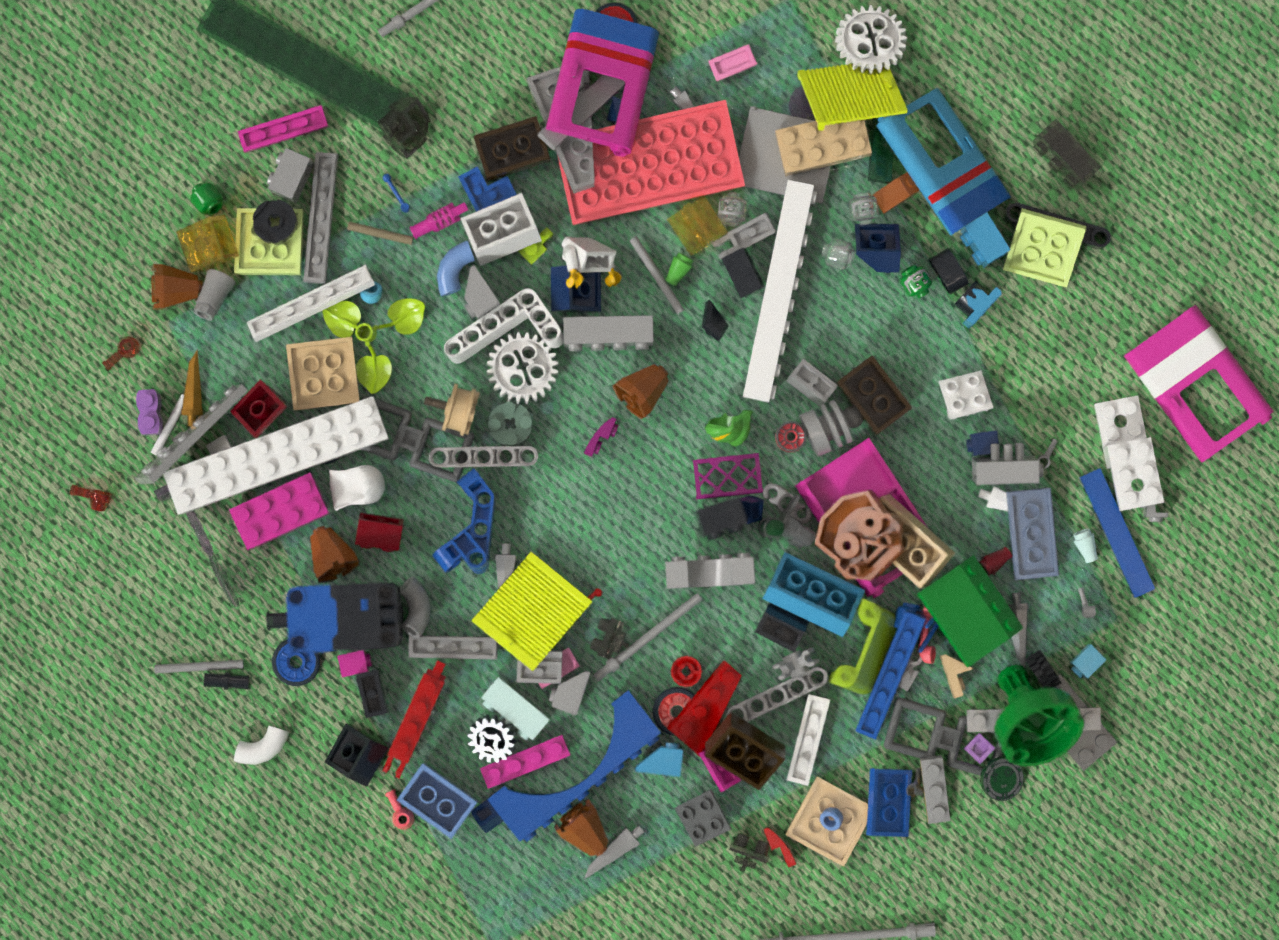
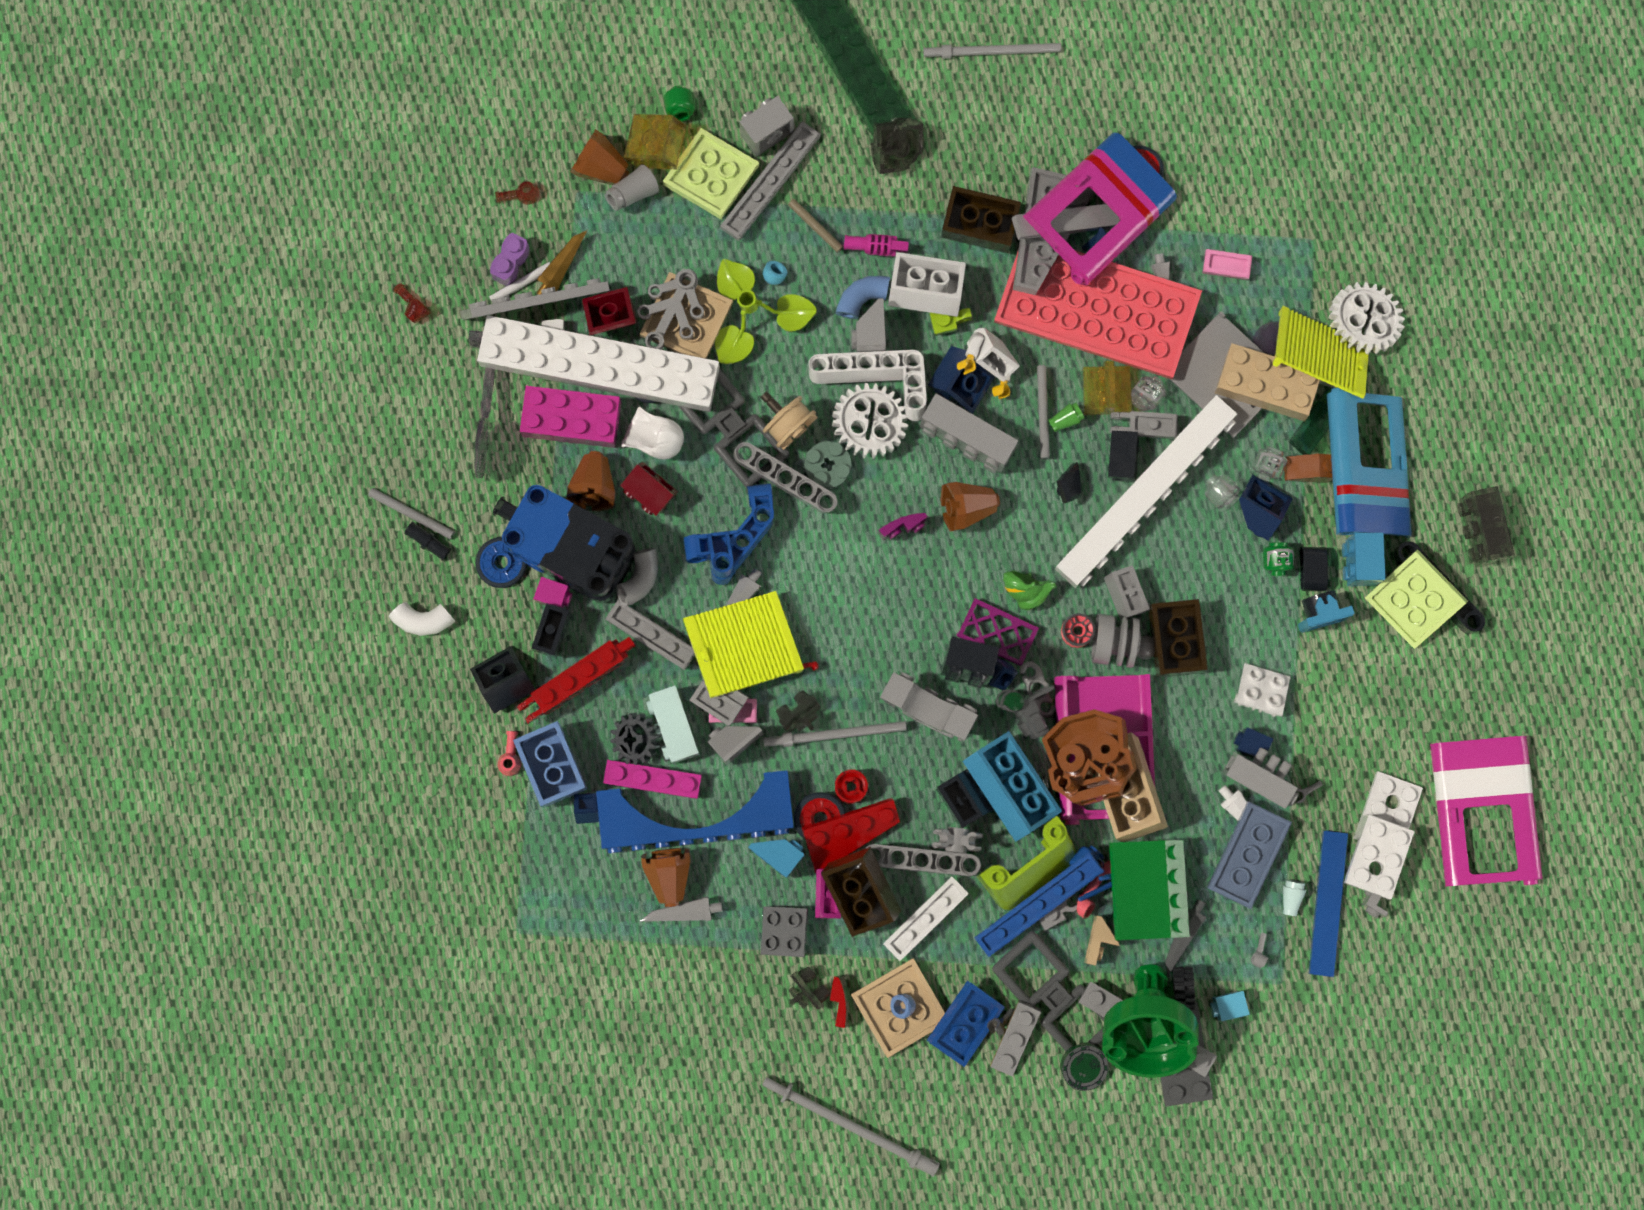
camera: 30 degrees right, 5 degrees down
(273, 209) = (715, 153): black plate -> none
(283, 129) = (785, 83): dark pink plate -> none
(306, 372) = (672, 306): none -> light grey plant
(310, 303) = (714, 249): white tile -> none
(404, 206) = (851, 215): blue hinge -> none
(483, 195) = (928, 244): blue plate -> none
(979, 748) = (1080, 1025): medium lavender plate -> none
(994, 561) = (1199, 859): dark red cone -> none

